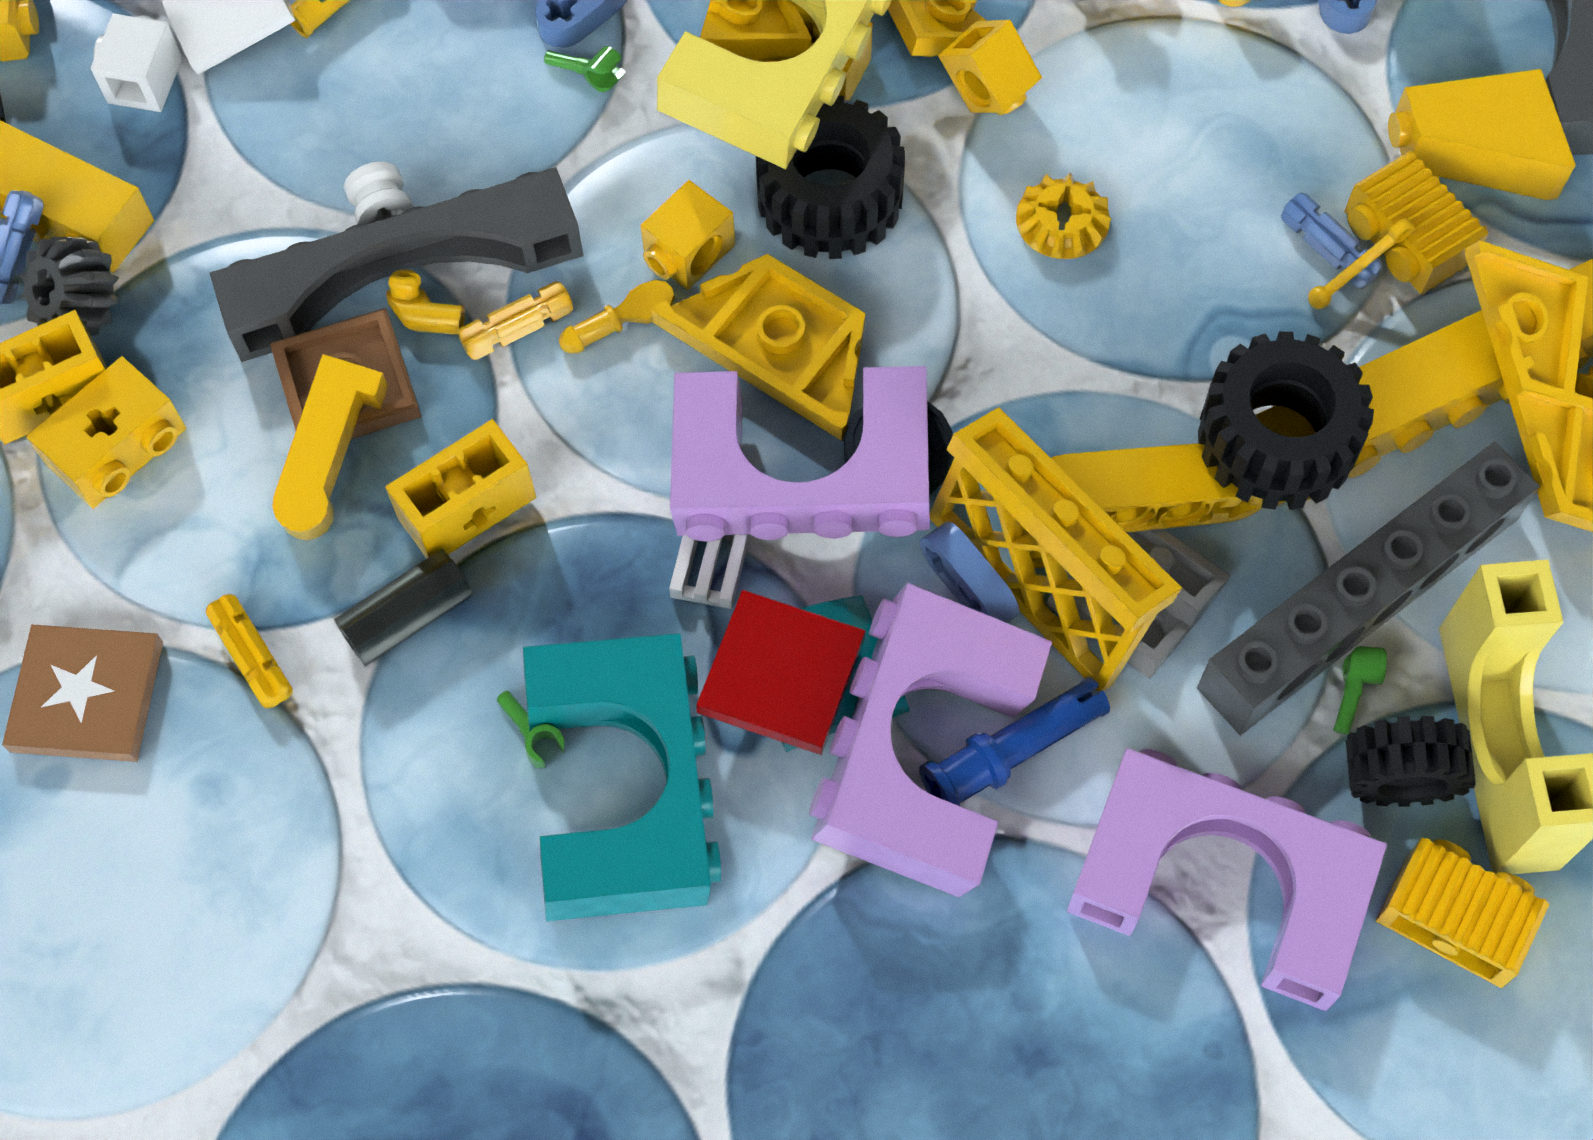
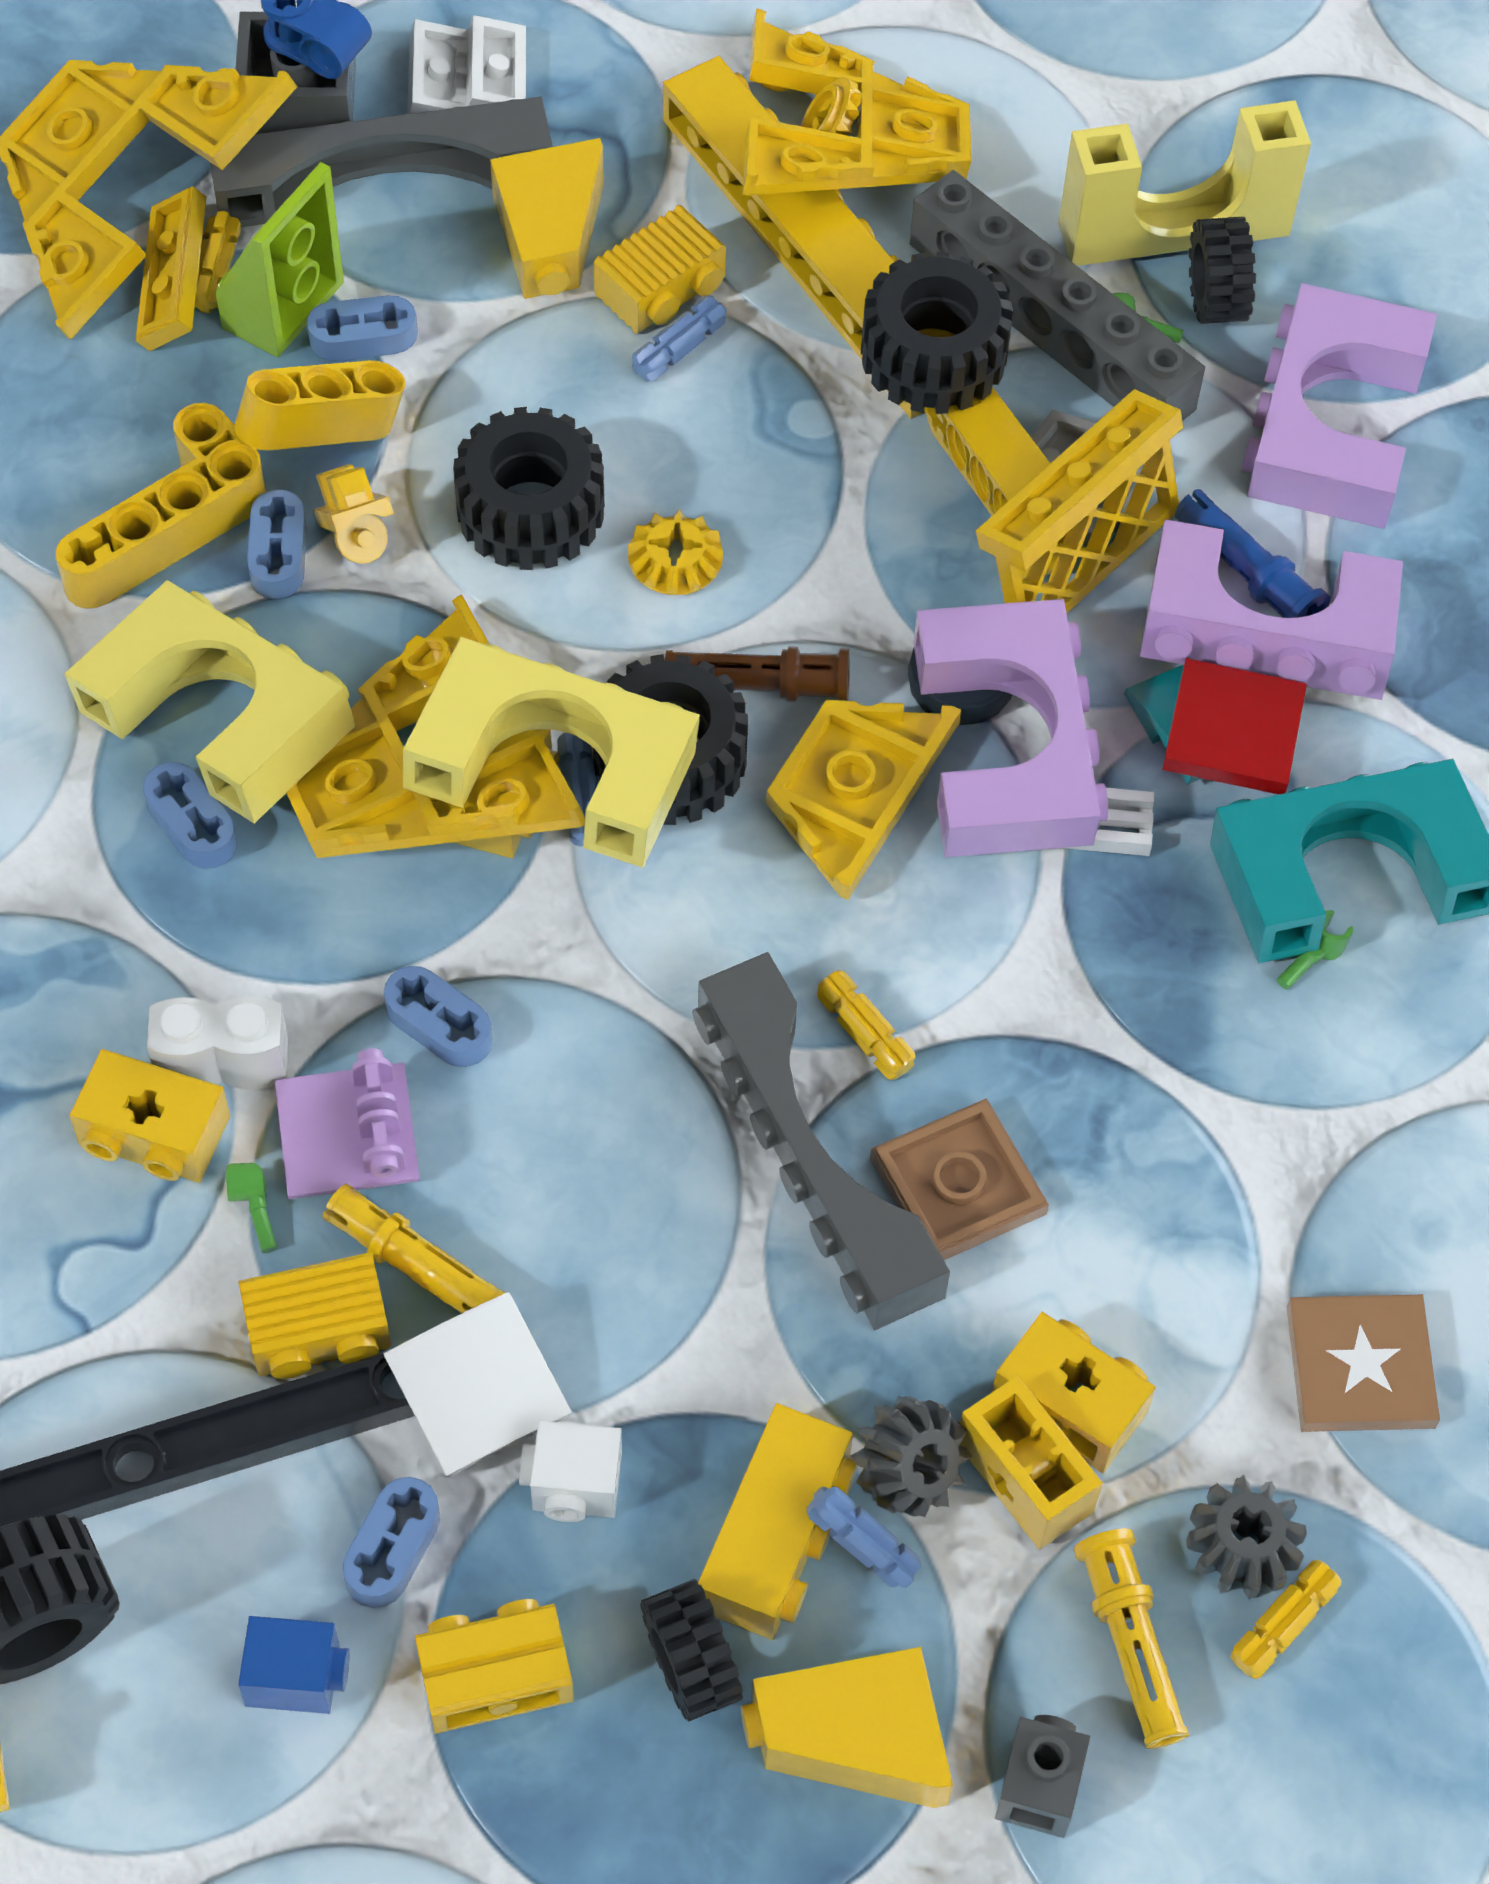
camera: 100 degrees left, 5 degrees down
(249, 651) = (1286, 1213): yellow axle -> none
(321, 443) = (1060, 1163): yellow leg -> none
(376, 192) = (738, 1172): white wheel -> none
(403, 607) = (1218, 1070): pearl dark grey axle -> none
(417, 310) = (868, 1121): yellow arm -> none
(462, 490) = (1095, 1022): yellow brick -> none
(599, 71) = (534, 985): bright green hand -> none
(634, 308) = (828, 911): yellow piece -> none
(687, 235) = (750, 868): yellow brick -> none
(905, 289) = (789, 673): none -> reddish brown pin
(968, 573) = (1103, 595): medium blue beam -> none
(990, 67) = (518, 605): yellow brick -> none
(1136, 50) = (521, 451): none -> black tyre
(1320, 296) = (697, 263): yellow hinge -> none
(1463, 911) = (1334, 242): yellow brick -> none

